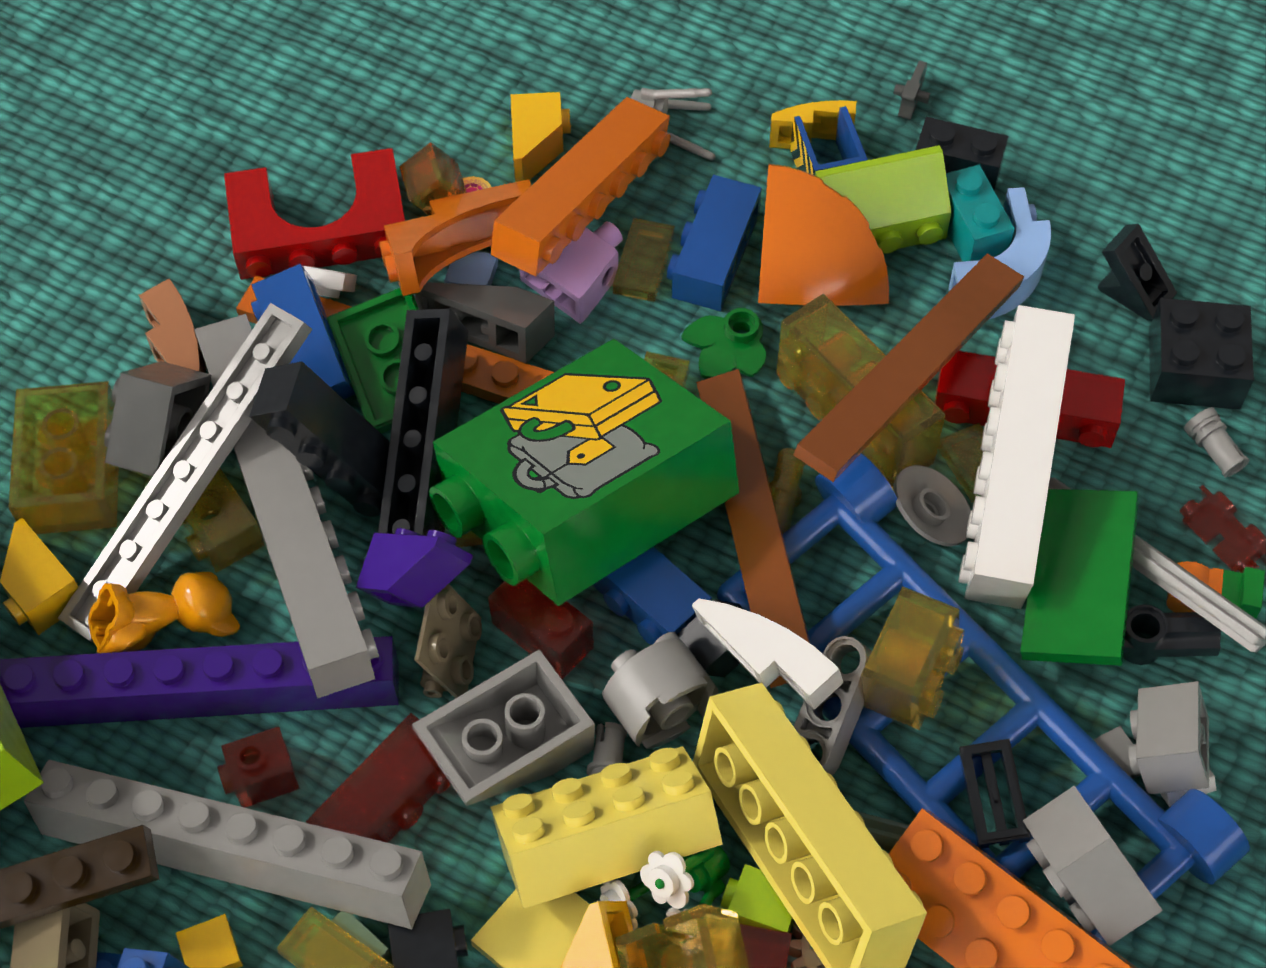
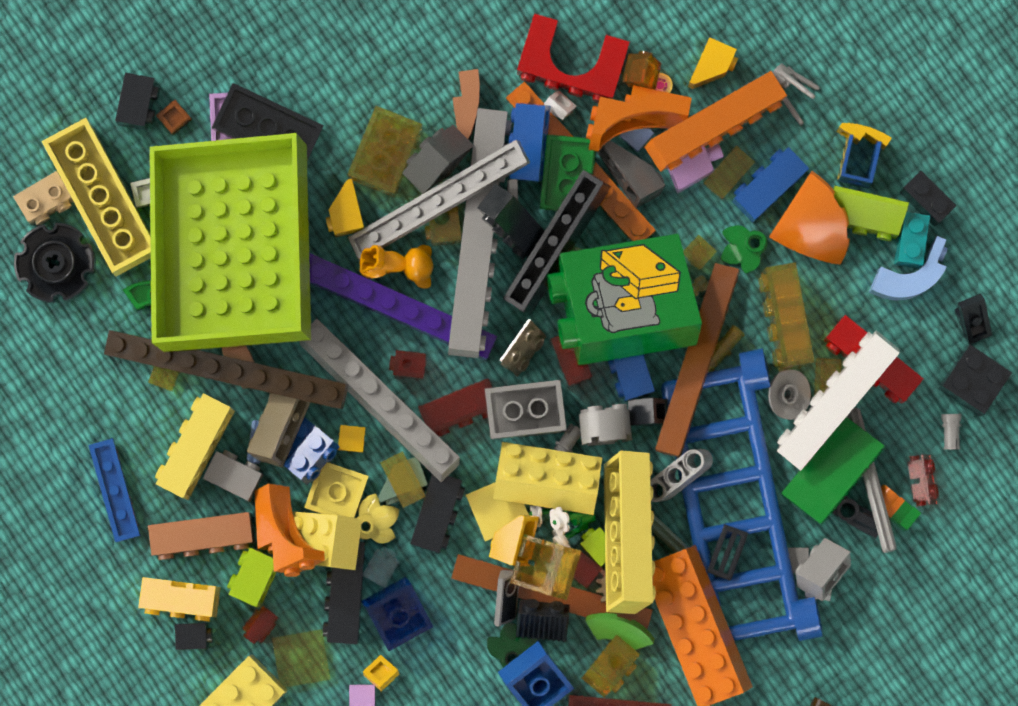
camera: 25 degrees right, 25 degrees up
(410, 566) = (517, 314): dark purple slope -> none
(770, 650) = (660, 440): white slope -> none
(907, 368) = (814, 327): dark orange tile -> none
(912, 92) = (930, 140): dark grey piece -> none
(912, 658) = (723, 477): clear yellow brick -> none
(1088, 868) = (745, 609): light grey brick -> none

